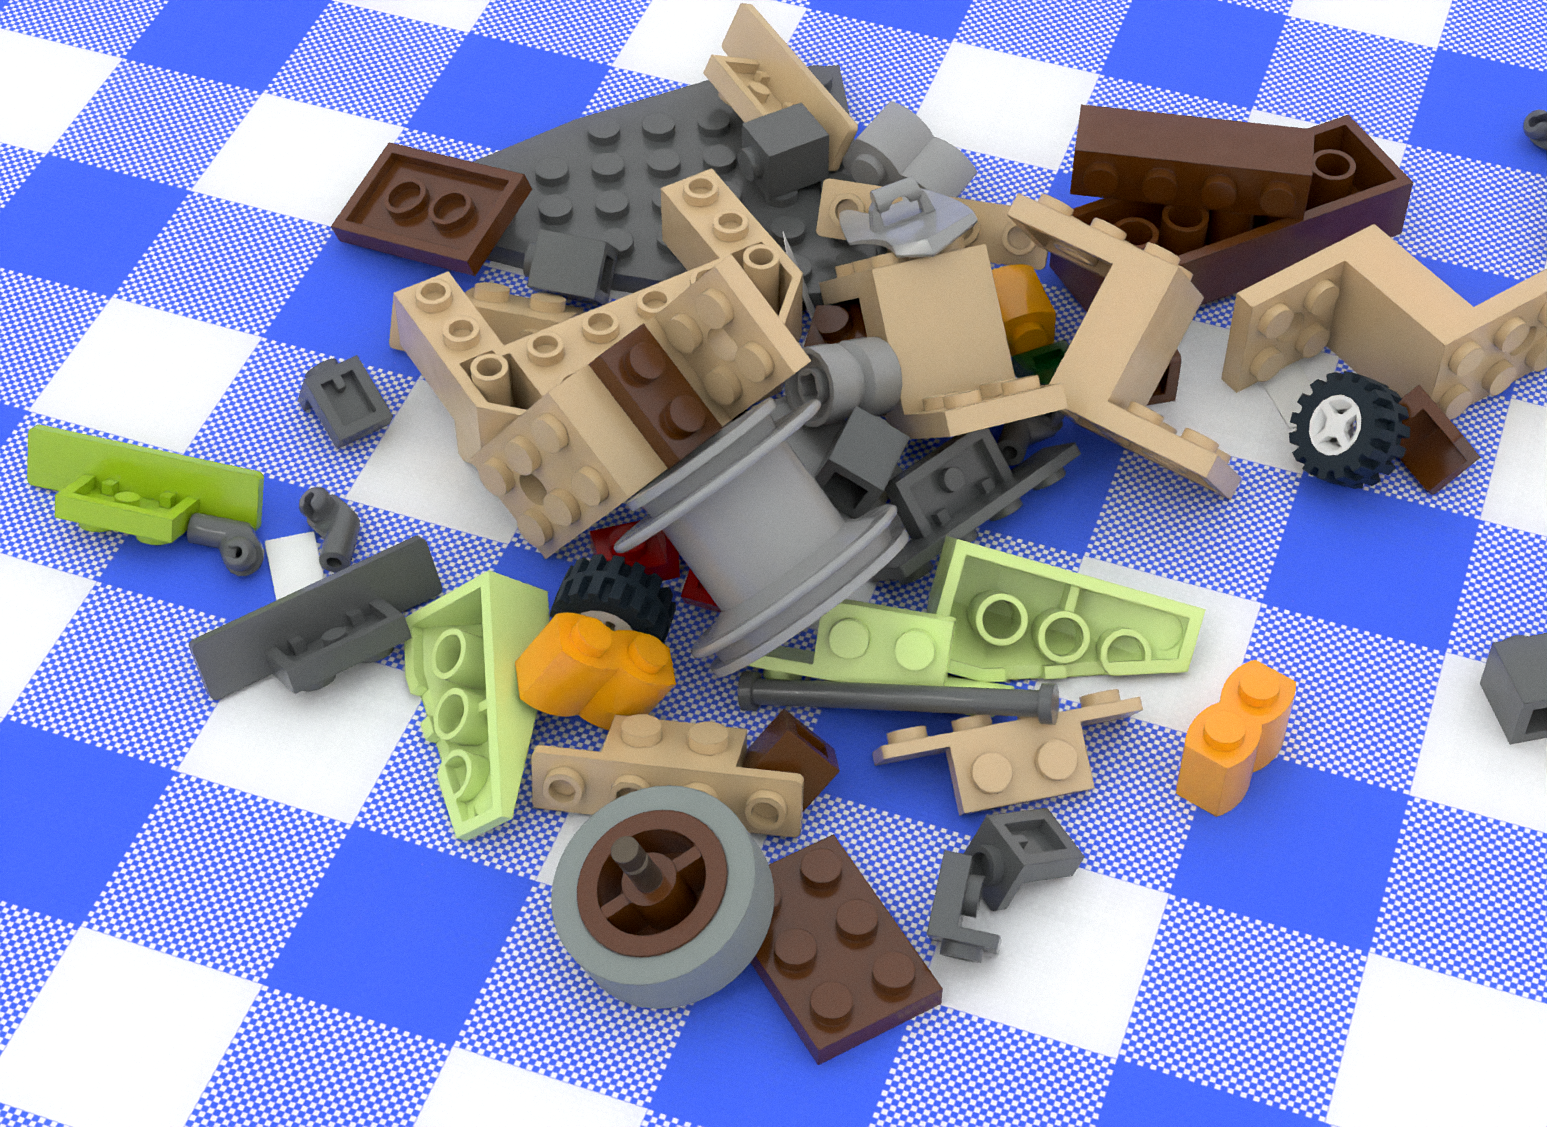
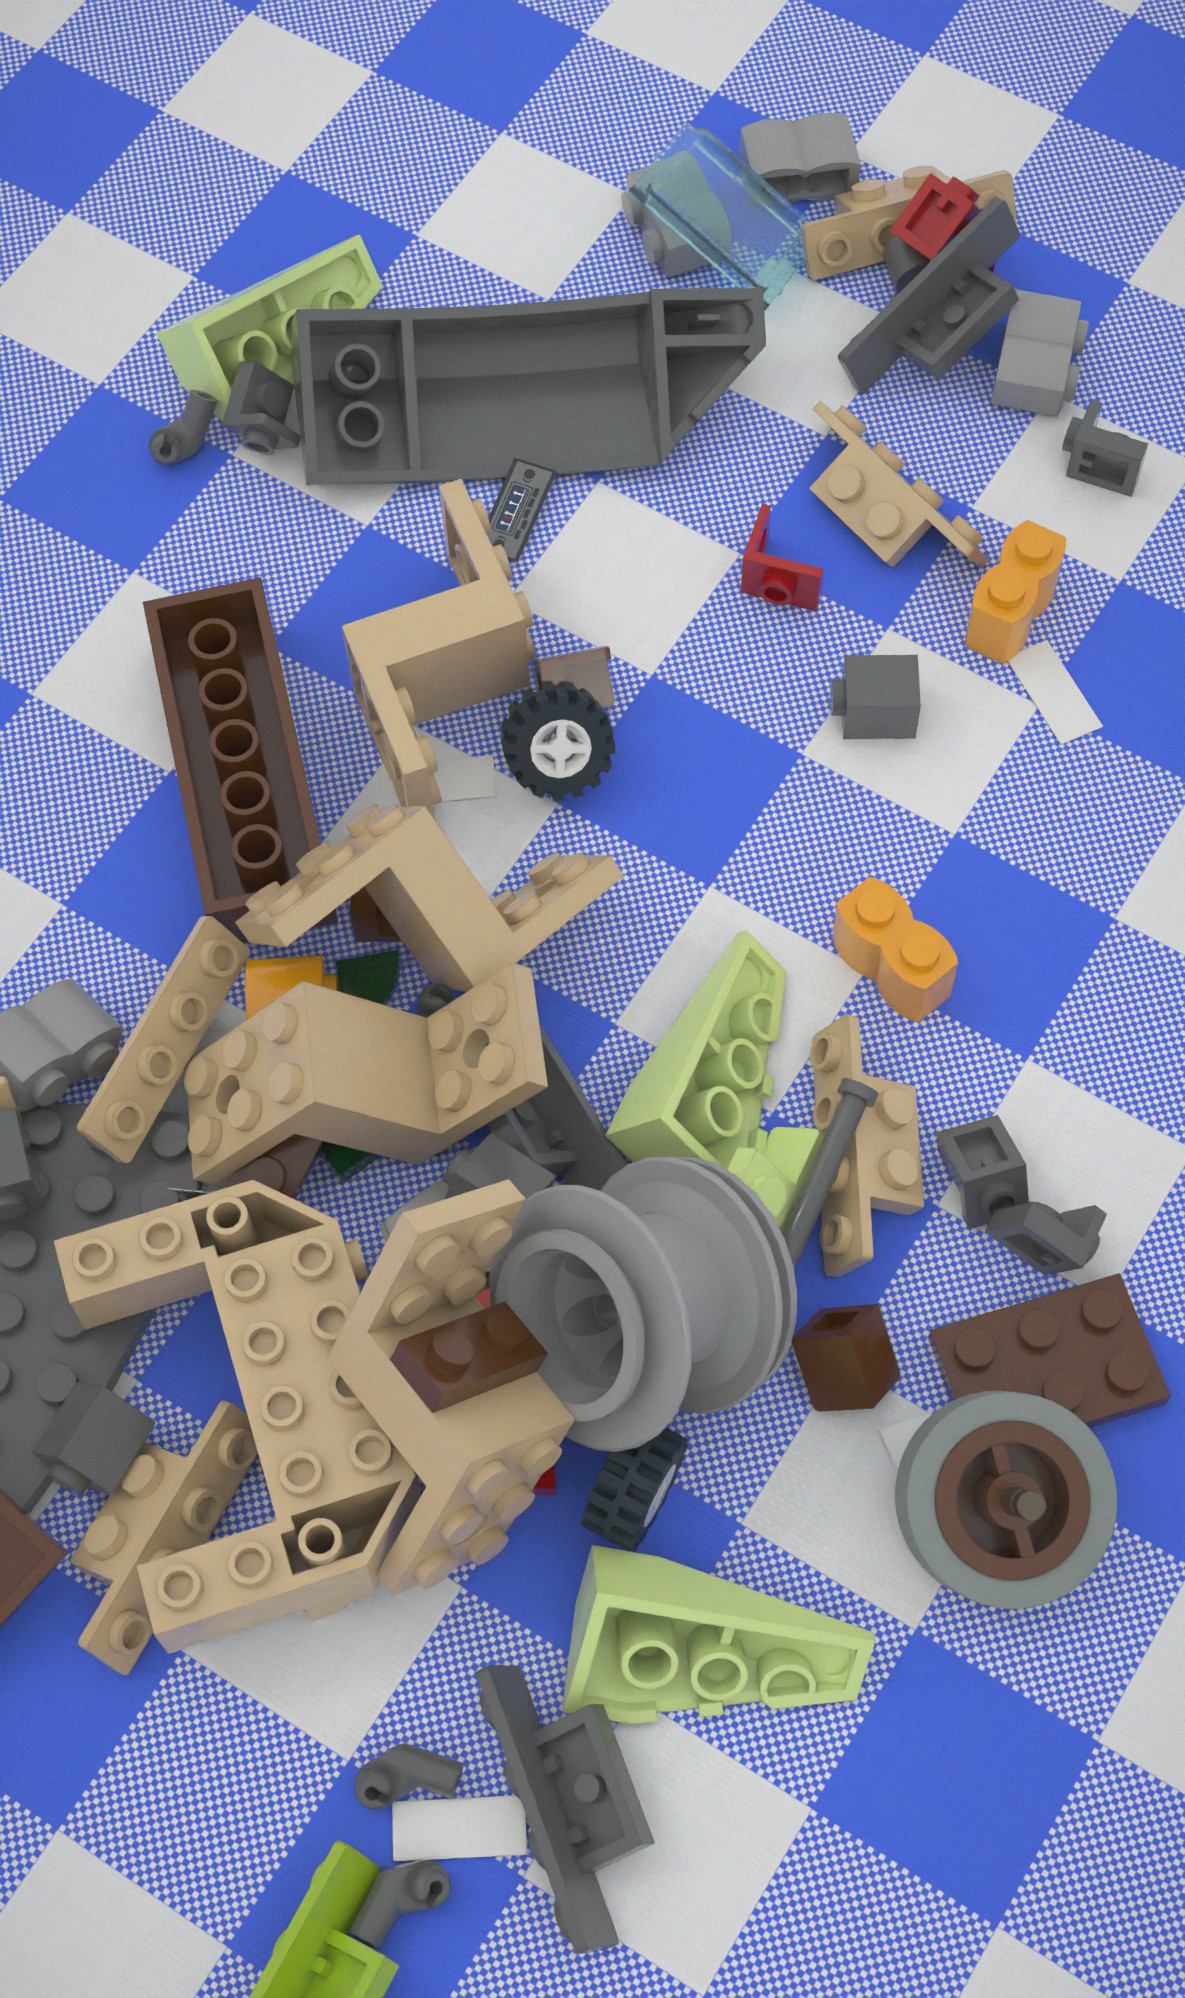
camera: 75 degrees left, 15 degrees up
(344, 400) = (219, 1737): dark grey bracket -> none
(593, 671) = (722, 1513): light orange brick -> none
(659, 752) = (831, 1467): tan bracket -> none
(846, 376) = (396, 1170): light grey wheel -> none
(910, 228) = (230, 1052): light grey shield -> none
(1193, 162) = (194, 762): reddish brown brick -> none

